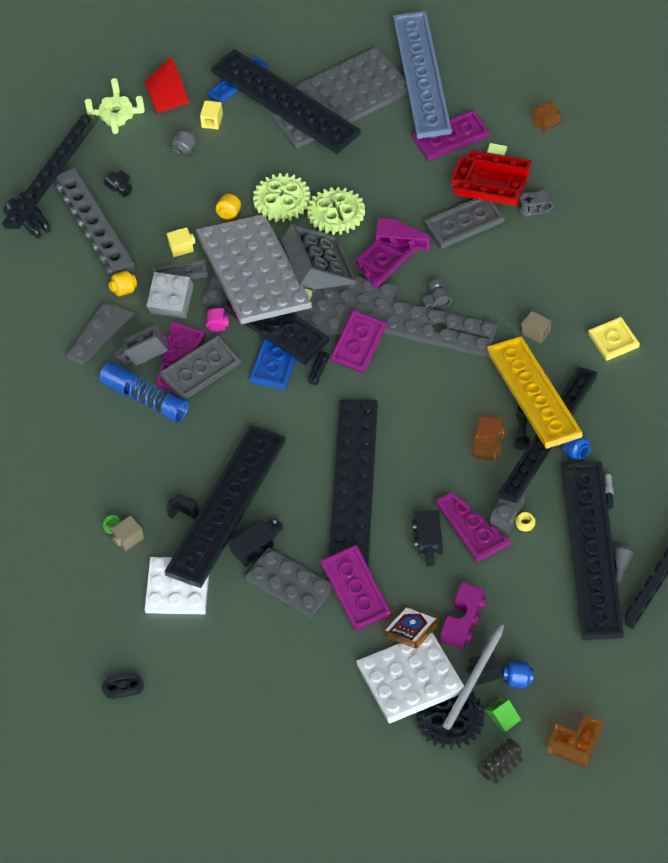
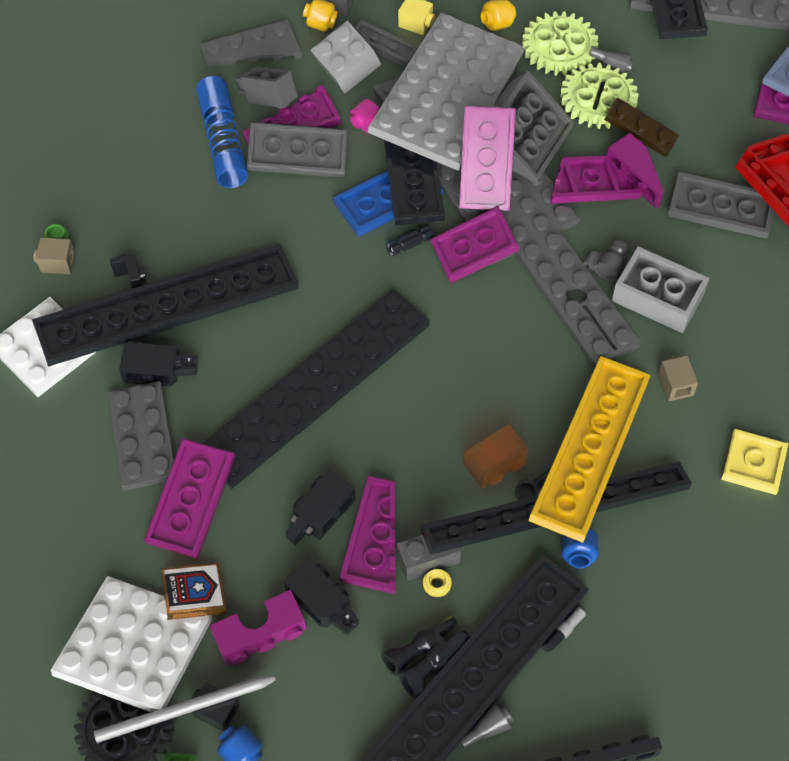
camera: 40 degrees right, 5 degrees up
(324, 183) = (614, 59): none -> dark grey cone
(324, 287) = (487, 157): none -> tile
(373, 210) = (641, 127): none -> dark brown plate
(479, 574) = (321, 597): none -> black hinge
(481, 288) = (660, 289): none -> light grey brick
(555, 549) = (436, 650): none -> black piece

